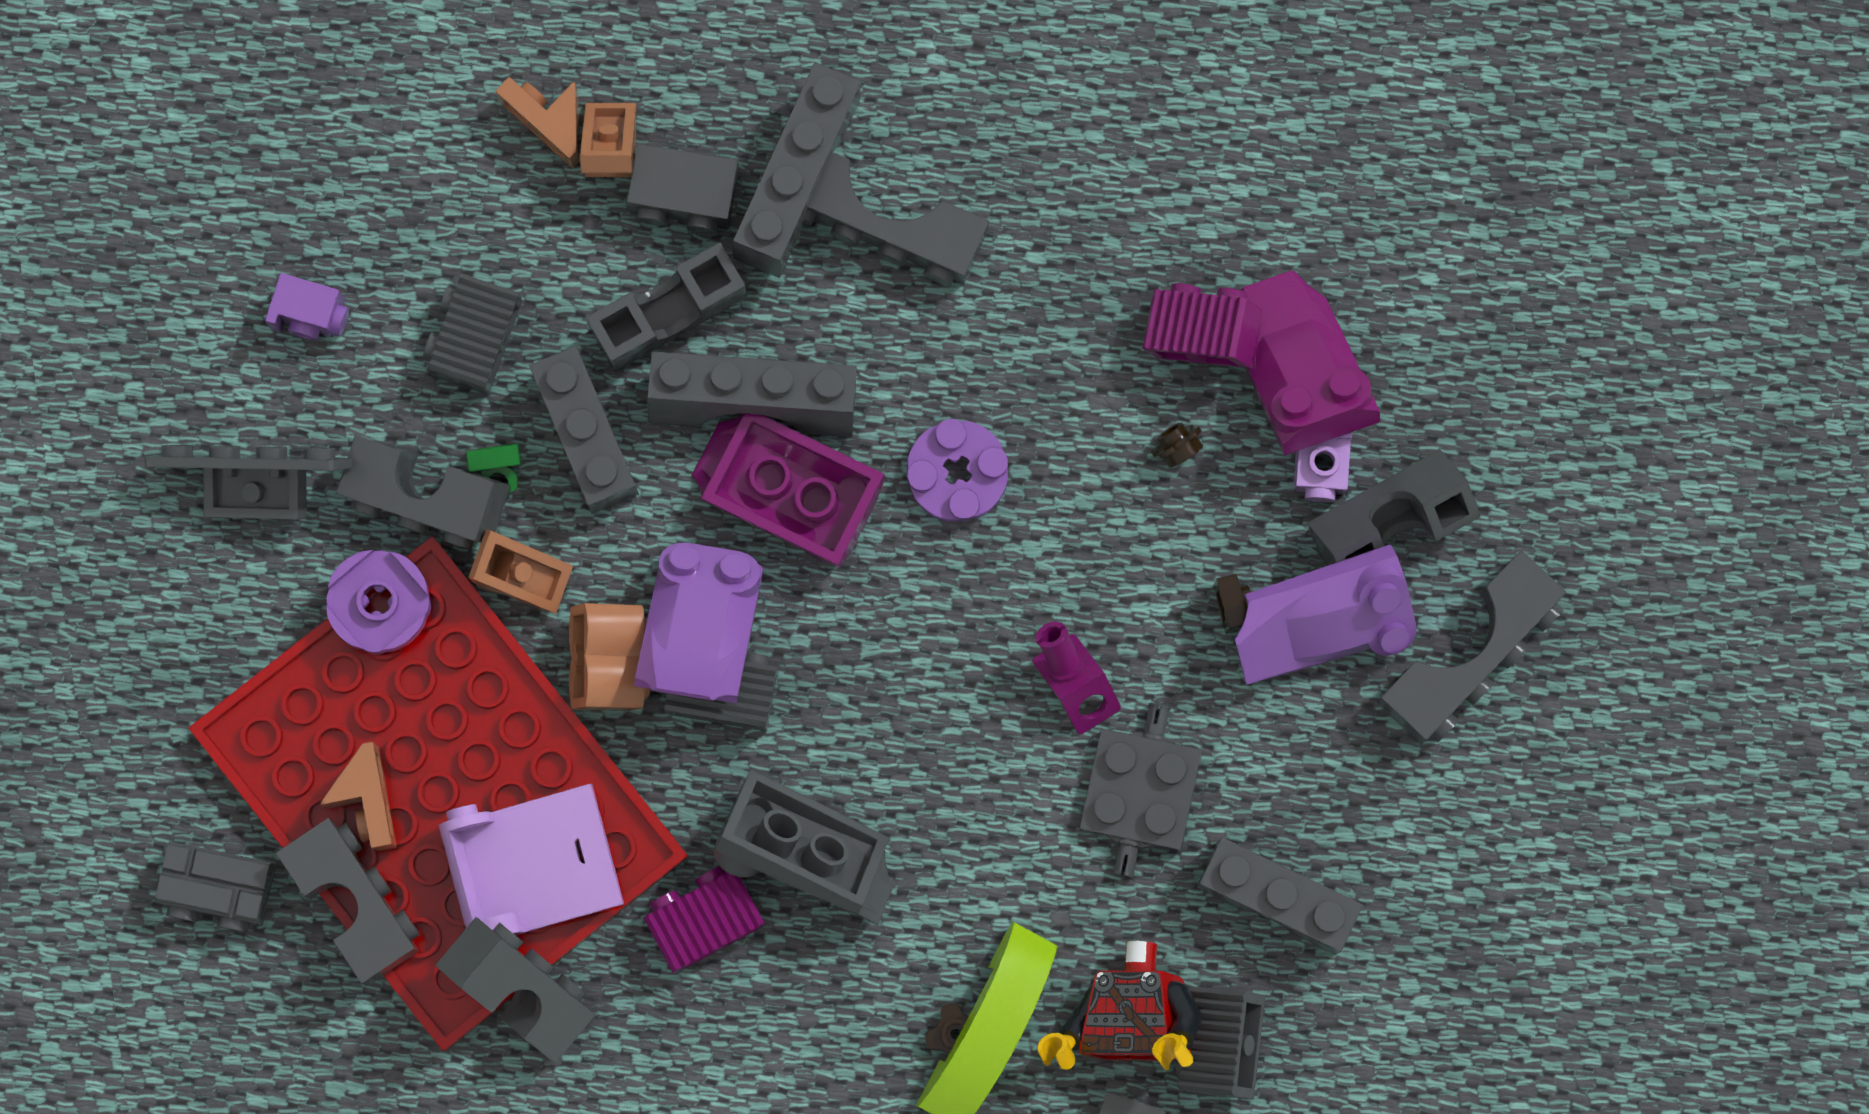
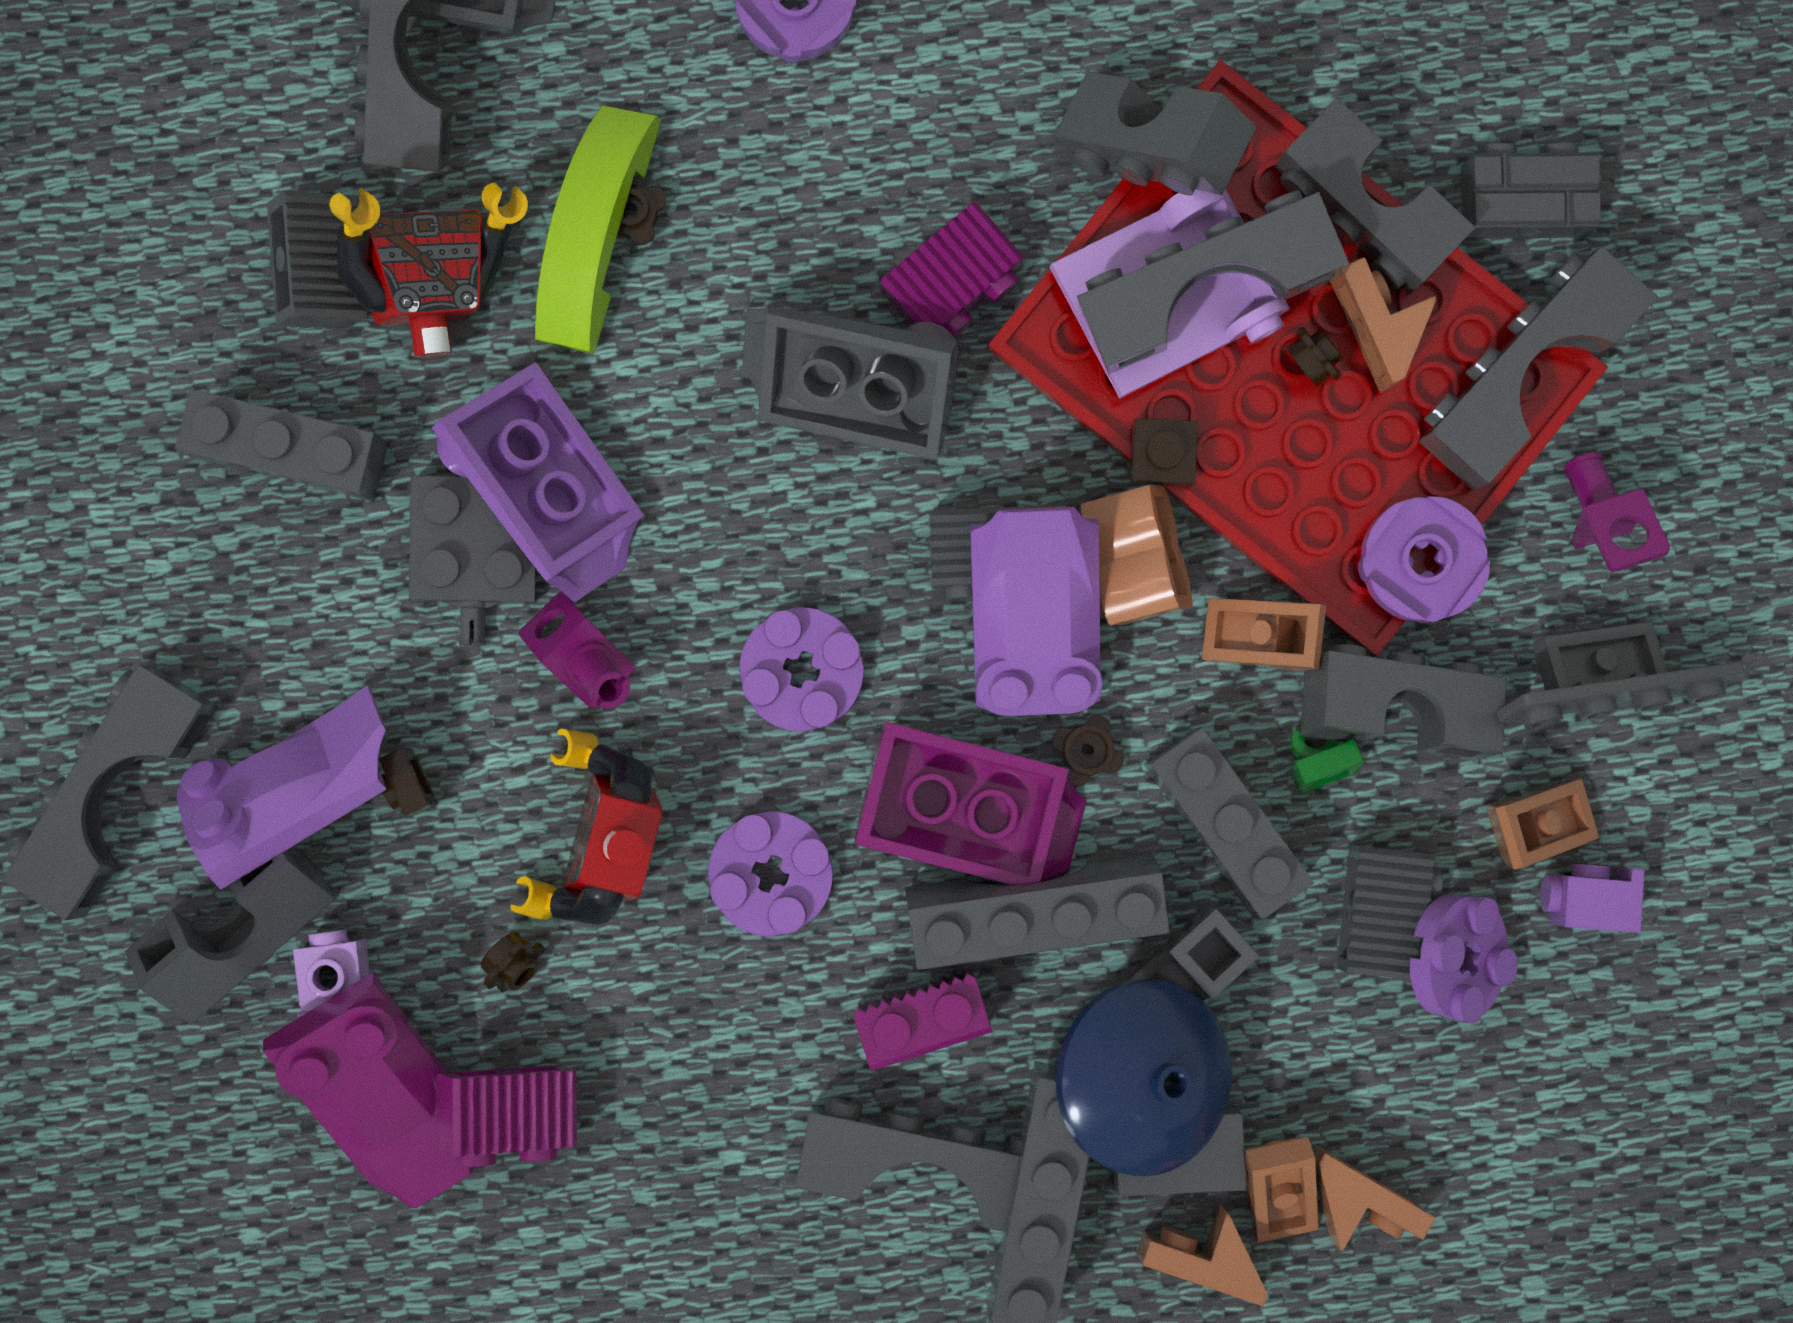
camera: 170 degrees right, 5 degrees up
(220, 608) = (1612, 515): none -> magenta bracket
(306, 698) = (1587, 311): none -> dark grey arch
(332, 375) = (1542, 823): none -> nougat slope
(426, 782) = (1316, 355): none -> dark brown plate
(427, 262) = (1461, 957): none -> medium lavender plate
(434, 862) = (1286, 248): none -> dark grey arch
(566, 734) = (1163, 452): none -> dark brown plate
(670, 90) = (1220, 1266): none -> nougat slope
(671, 503) = (1097, 735): none -> dark brown plate
(716, 256) = (1116, 1074): none -> dark blue dish
(861, 329) = (921, 1020): none -> magenta brick
(903, 656) = (816, 702): none -> medium lavender plate
(1073, 821) = (542, 480): none -> medium lavender slope
(1077, 522) = (610, 840): none -> torso

